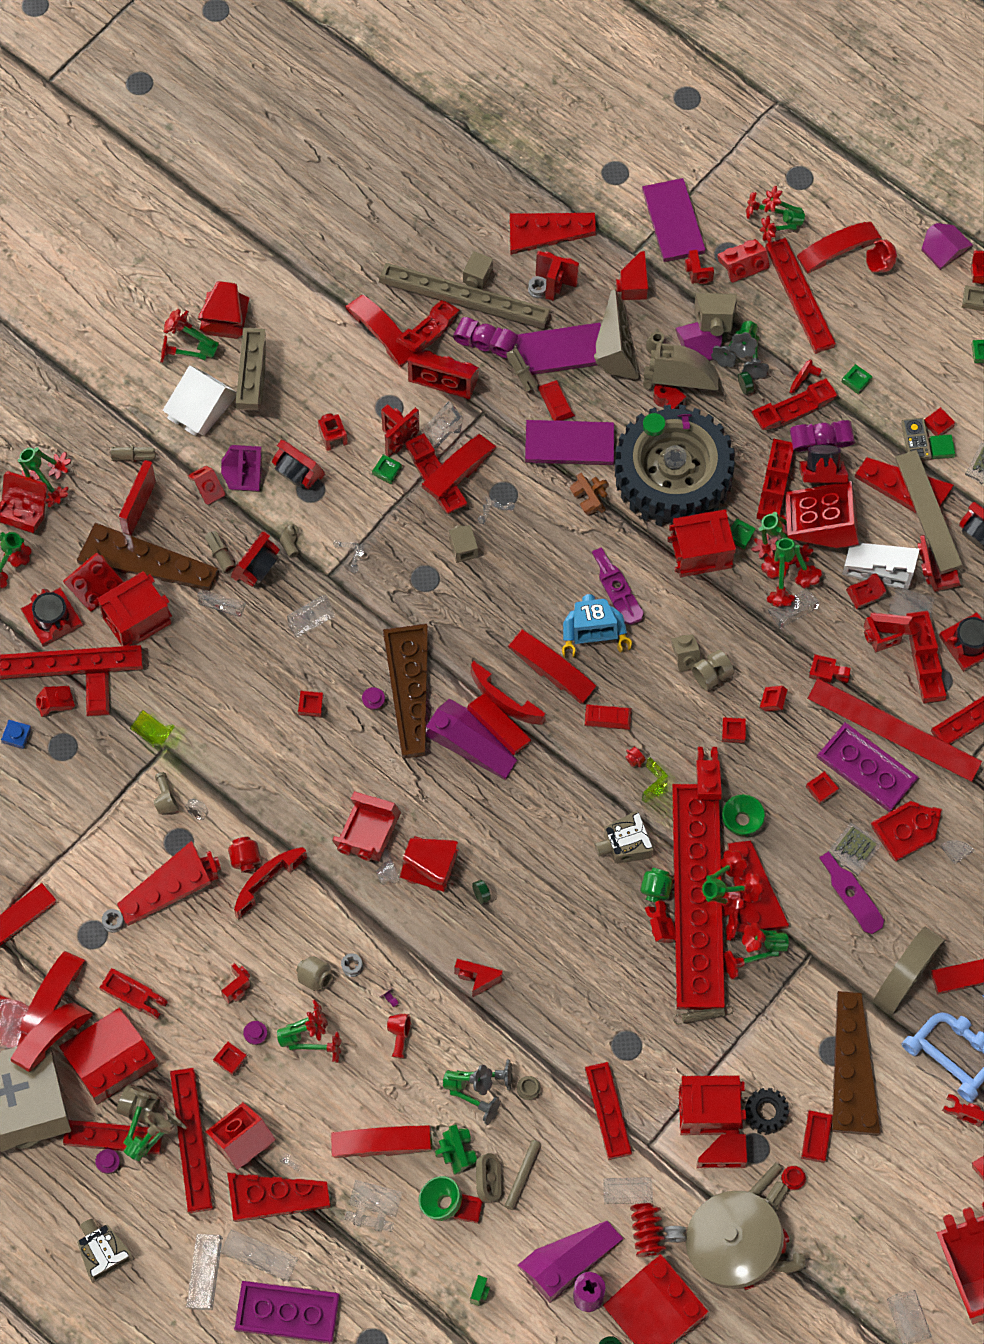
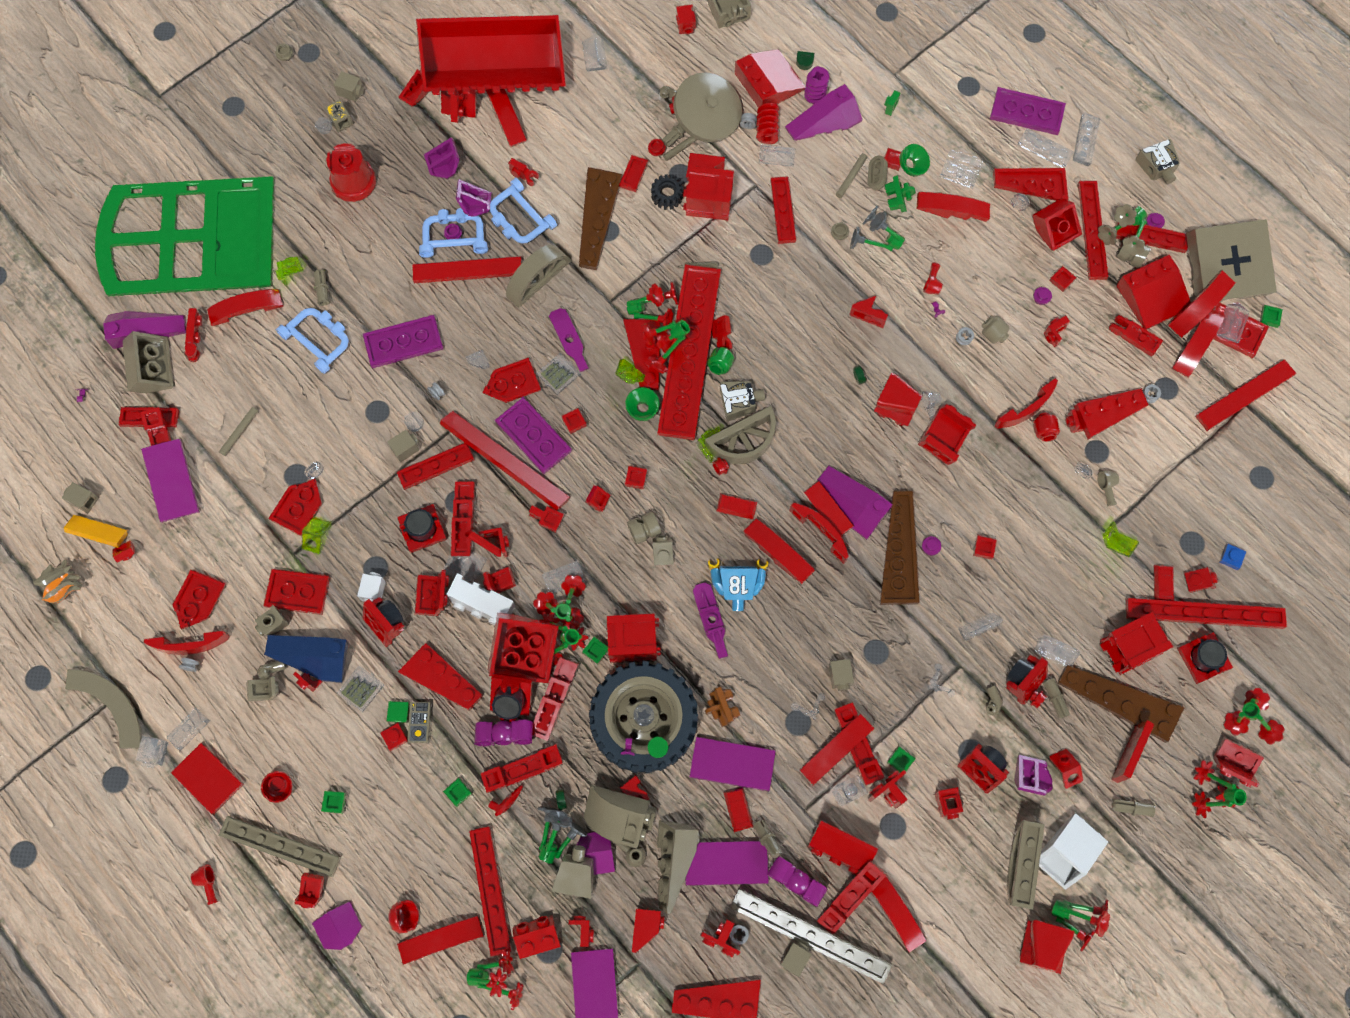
camera: 170 degrees left, 5 degrees up
(92, 581) = (1171, 679): red bracket -> none
(240, 547) = (1037, 699): none -> red plate
(291, 1033) = (1015, 286): plant -> none
(628, 796) = (739, 429): none -> dark tan window
(708, 775) = (664, 439): red hinge -> none
(769, 850) = (628, 372): none -> clear neon green bracket
(928, 512) = (427, 642): dark tan tile -> none

